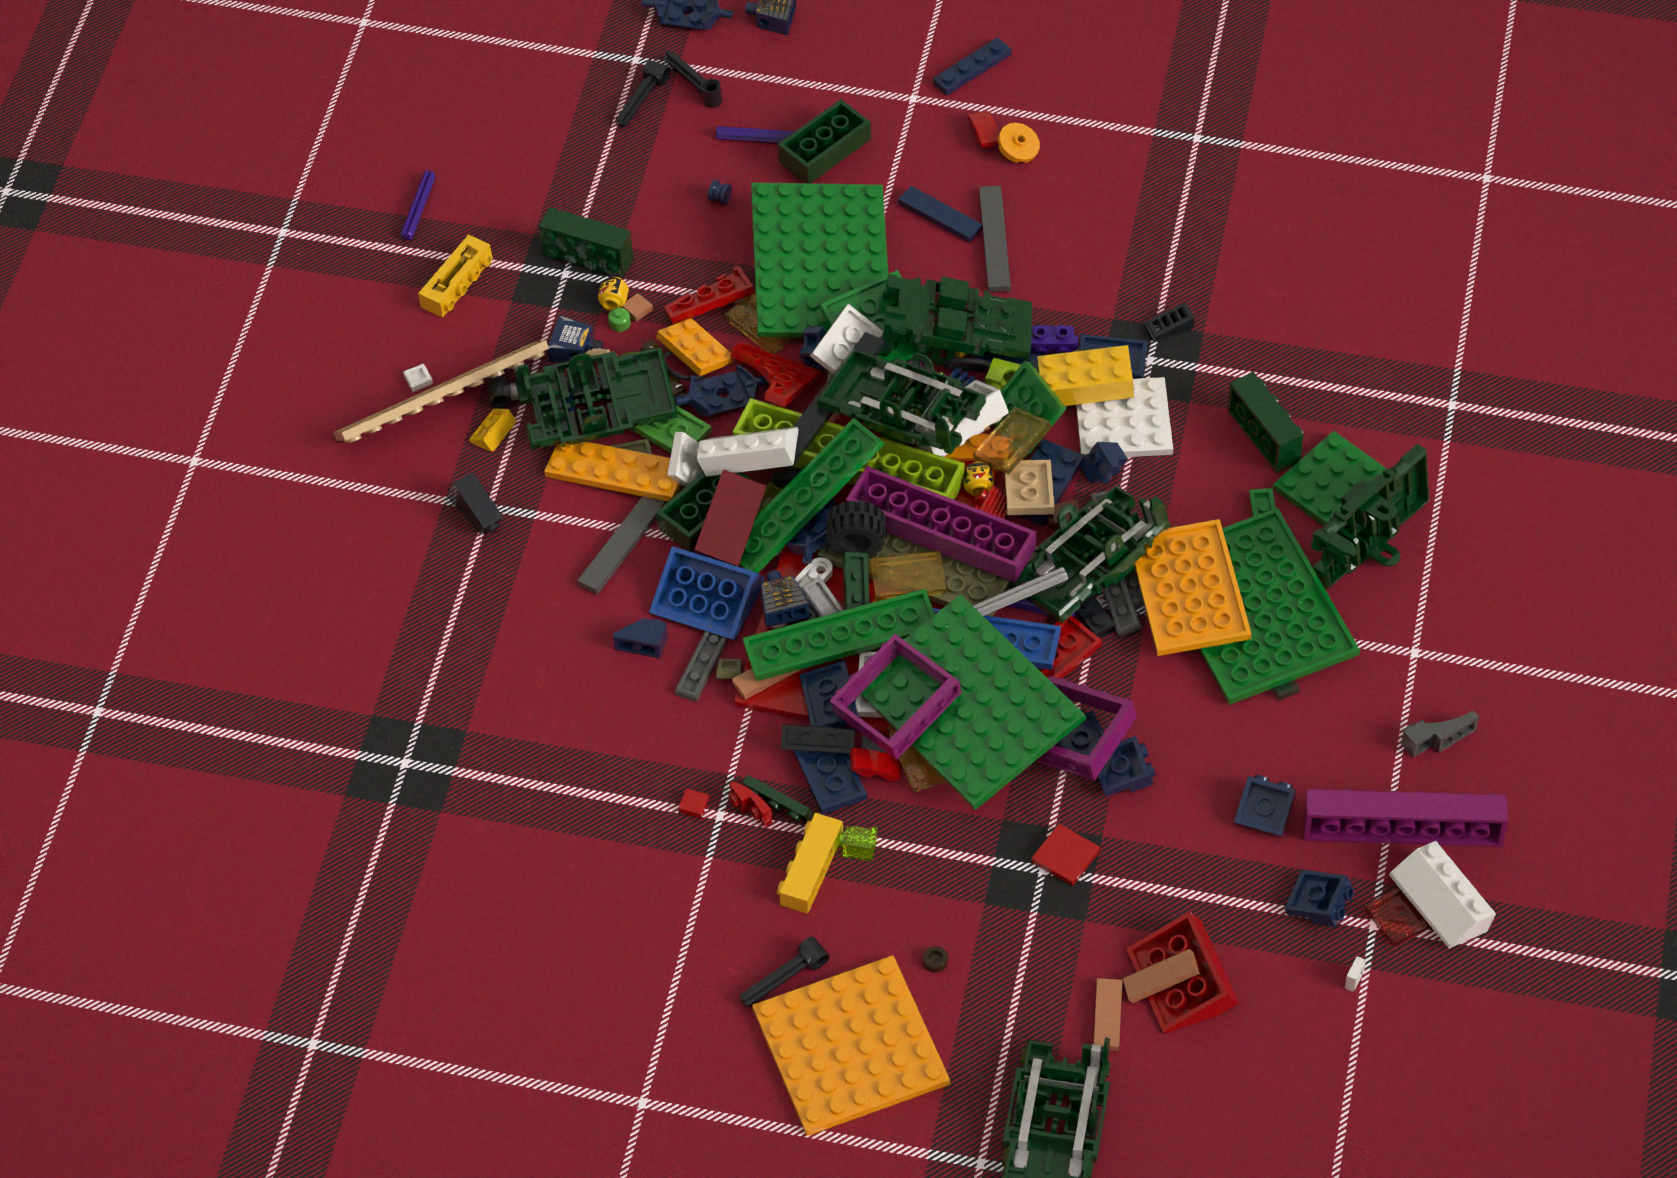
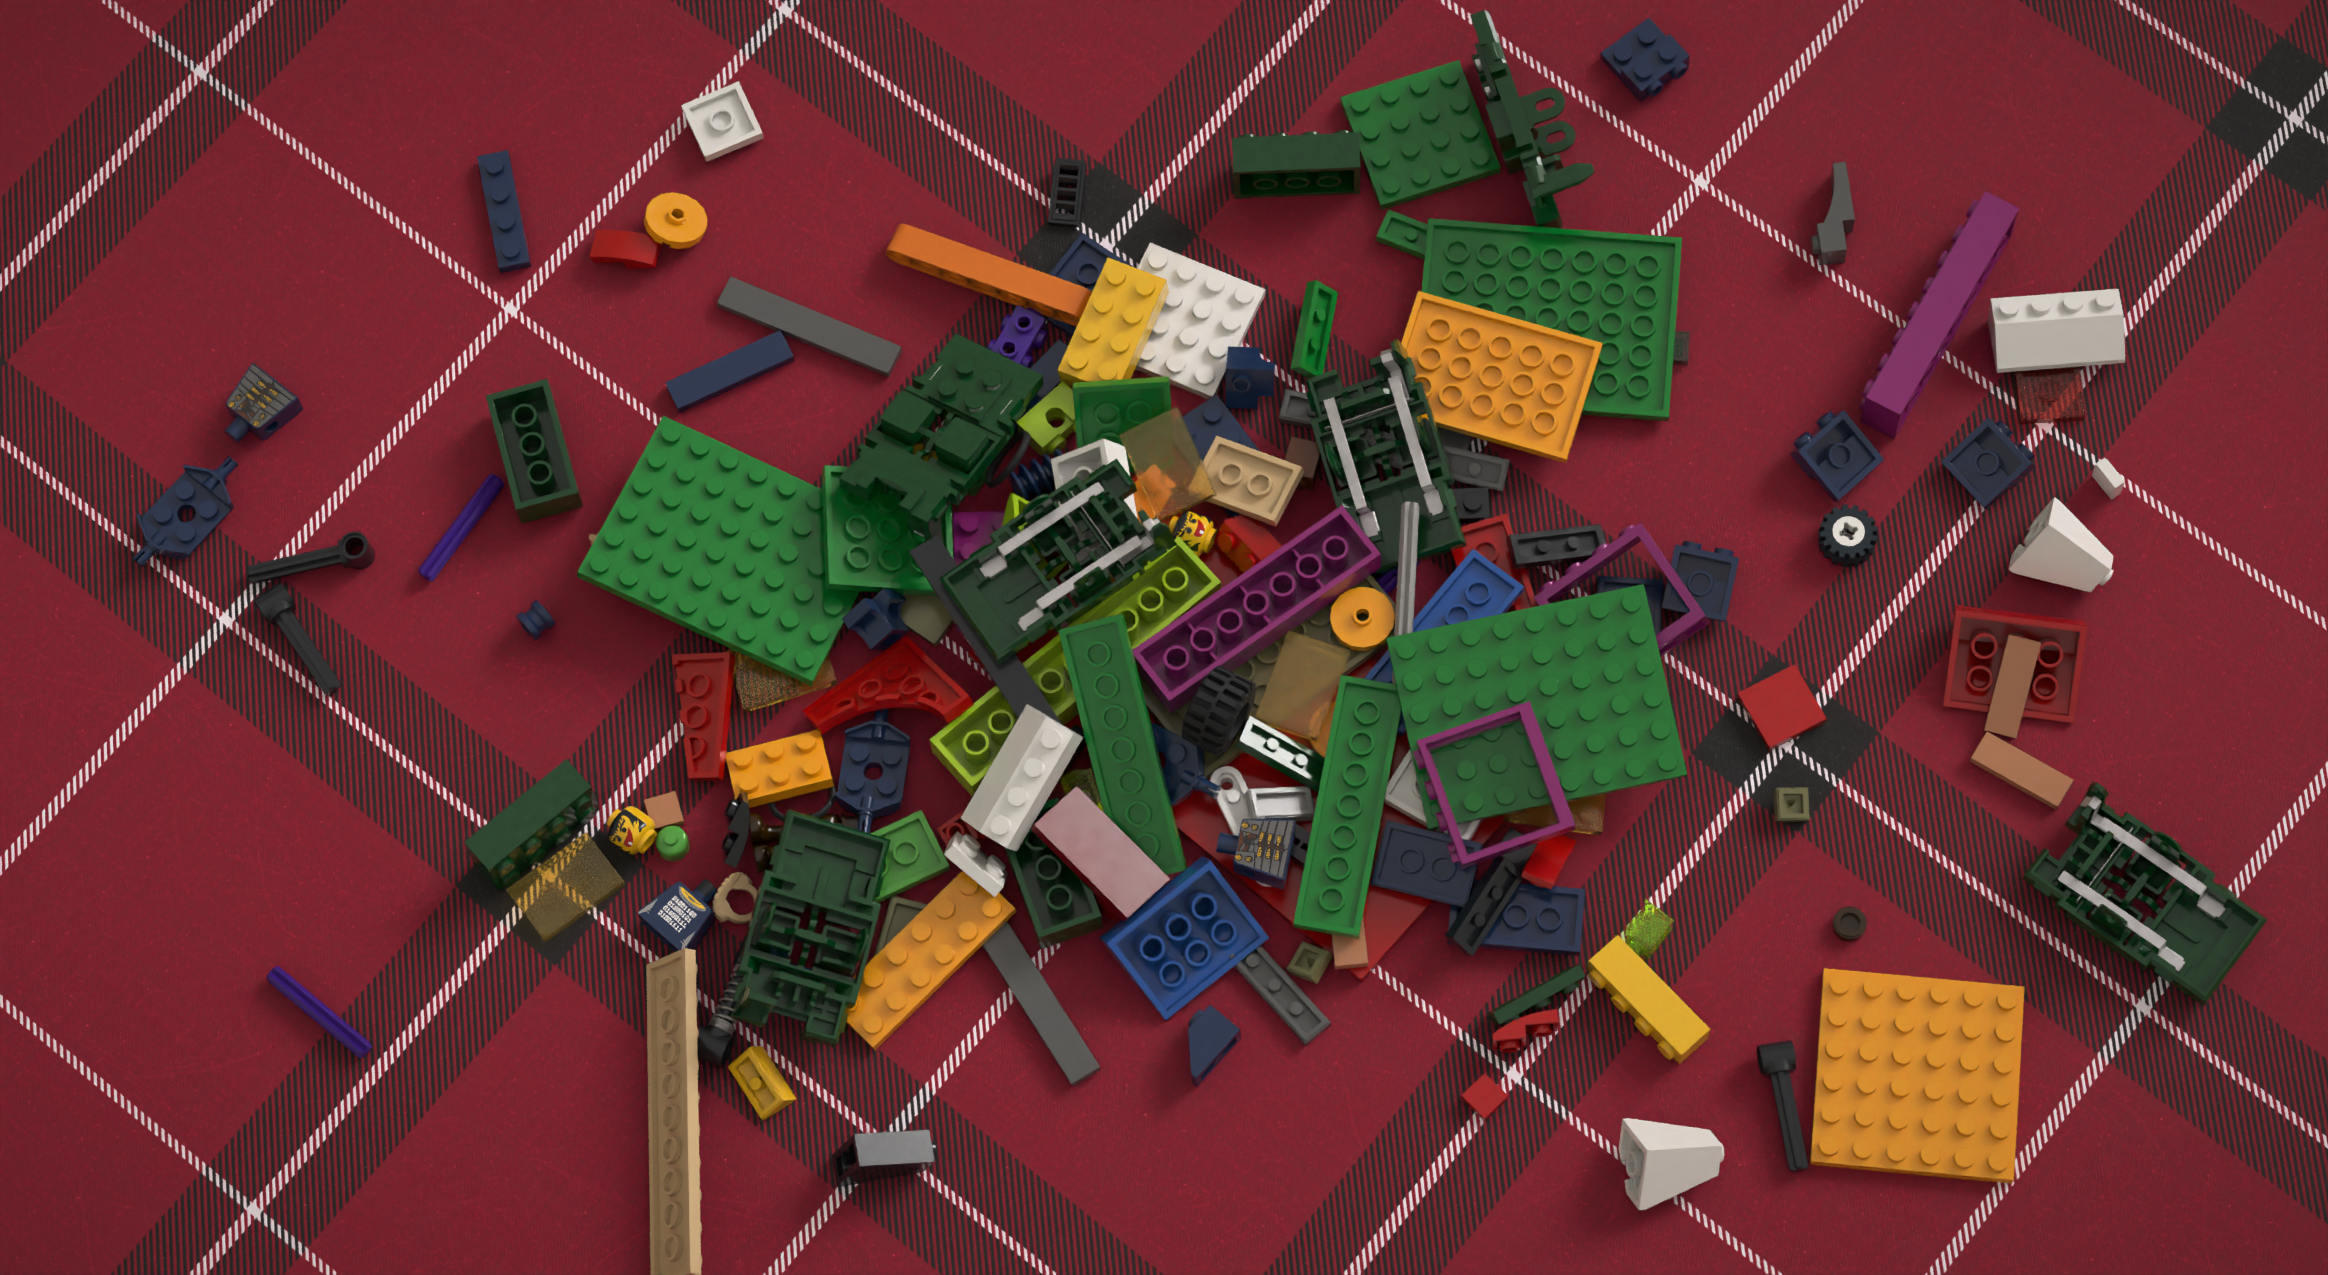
camera: 60 degrees left, 15 degrees up
(418, 377) = (619, 1139): white tile -> none
(455, 276) = (453, 971): yellow brick -> none
(562, 283) = (565, 887): none -> clear yellow tile
(648, 332) = (737, 820): none -> black slope
(704, 918) = (1666, 1159): none -> white slope
(842, 338) = (902, 584): white plate -> none
(983, 579) = (1362, 634): none -> light orange plate
(998, 887) = (1791, 804): none -> olive tile
(1084, 299) = (988, 274): none -> orange beam
(1092, 670) = (1554, 546): none -> black plate
(1099, 137) = (722, 121): none -> white plate
(1163, 484) = (1314, 329): none -> green plate
(1214, 847) = (1848, 547): none -> black wheel
(1281, 965) = (2062, 551): none -> white slope
(1478, 582) = (1646, 60): none -> dark blue plate

